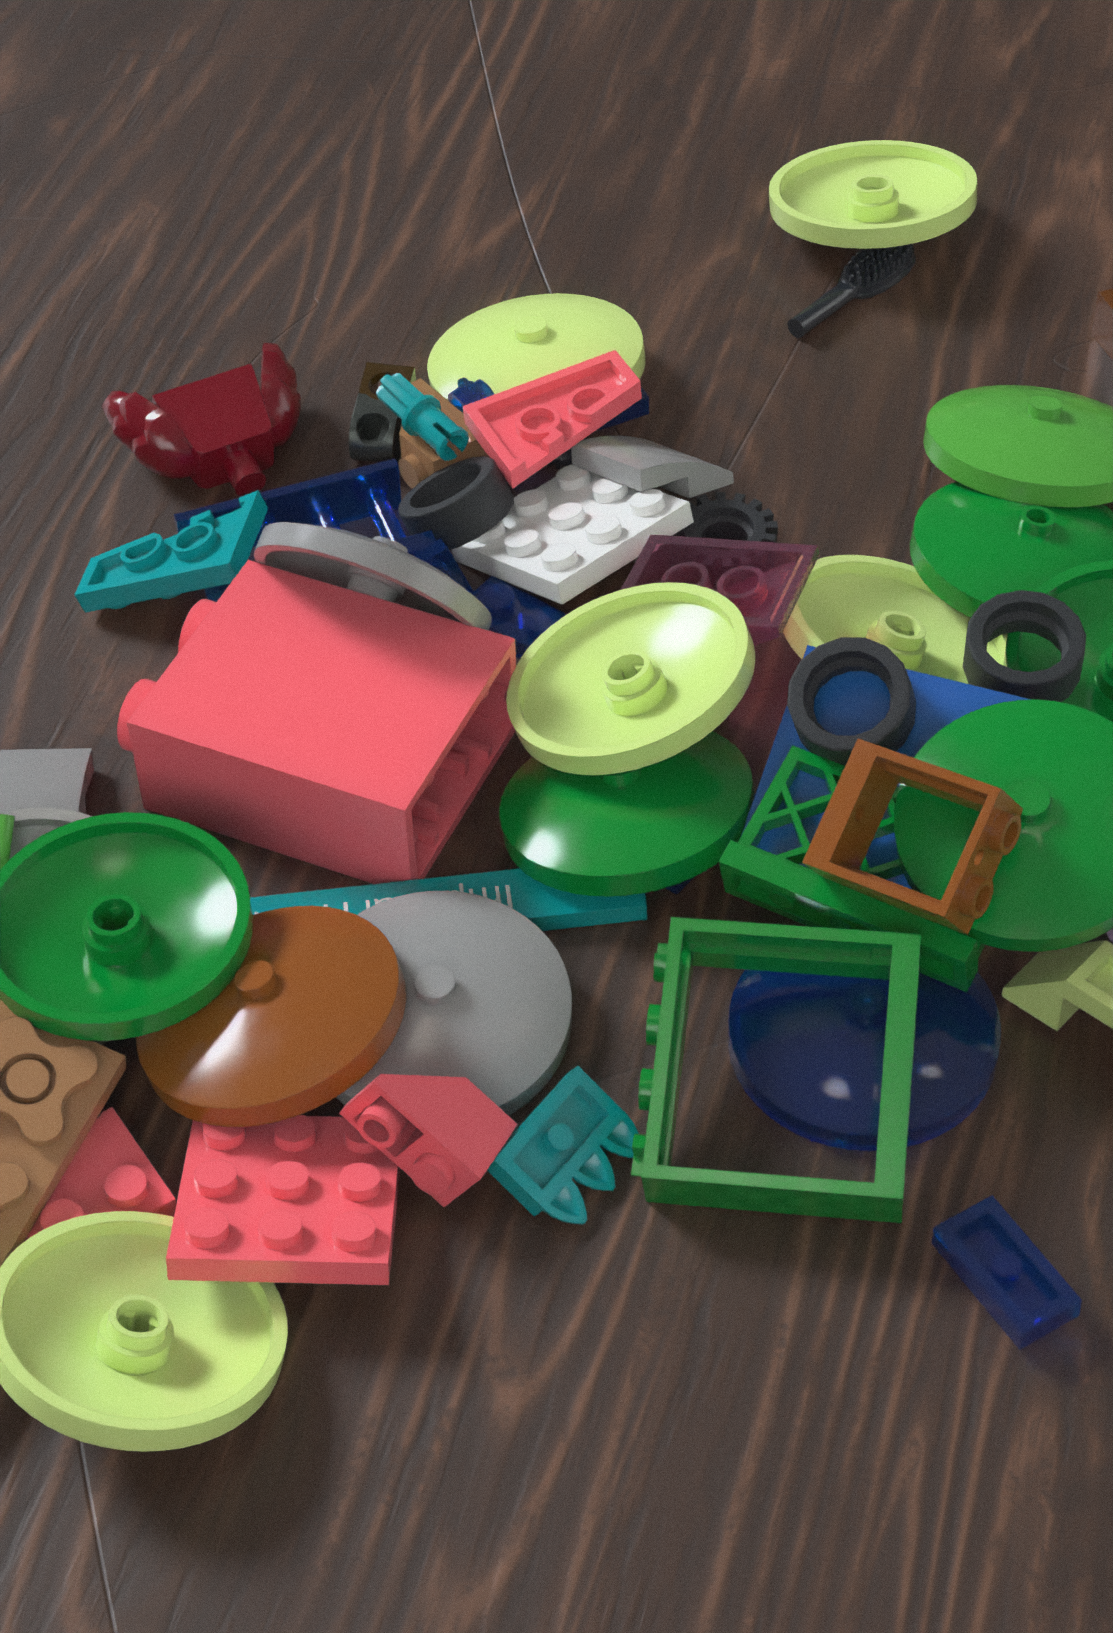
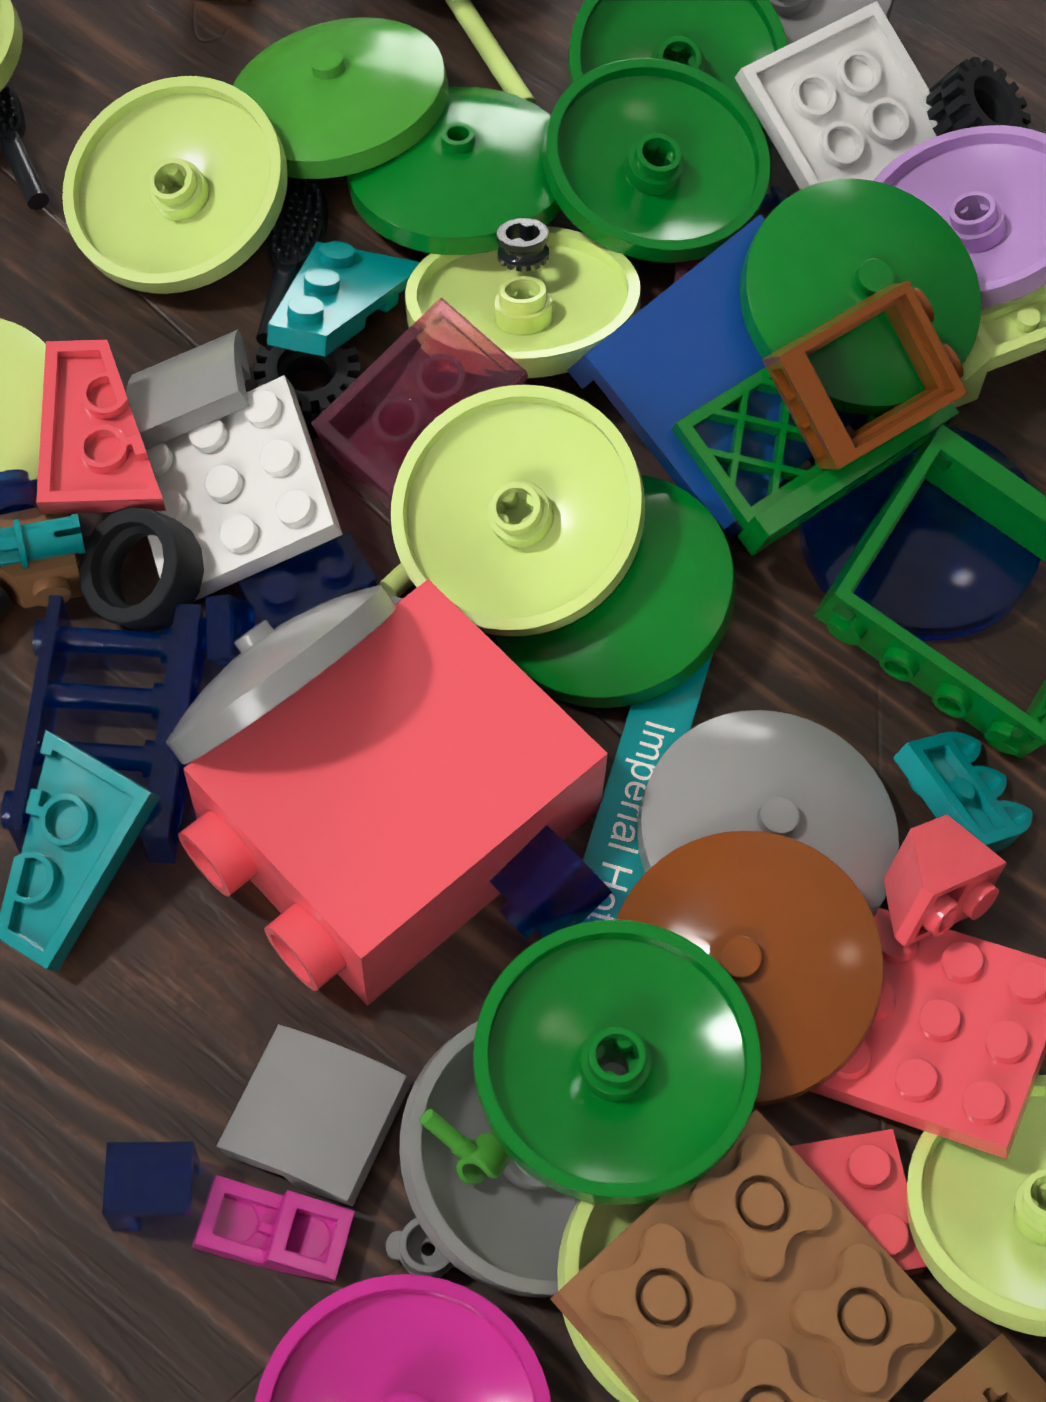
camera: 70 degrees left, 15 degrees up
(291, 860) = (548, 886): none -> clear blue brick
(808, 513) = (335, 296): none -> teal wing
(836, 659) = (714, 331): black tyre -> none
(857, 382) = (175, 184): none -> yellowish green dish
(867, 490) = (295, 233): none -> black piece
(953, 608) = (523, 244): none -> black bush
(1031, 614) = (642, 180): black tyre -> none

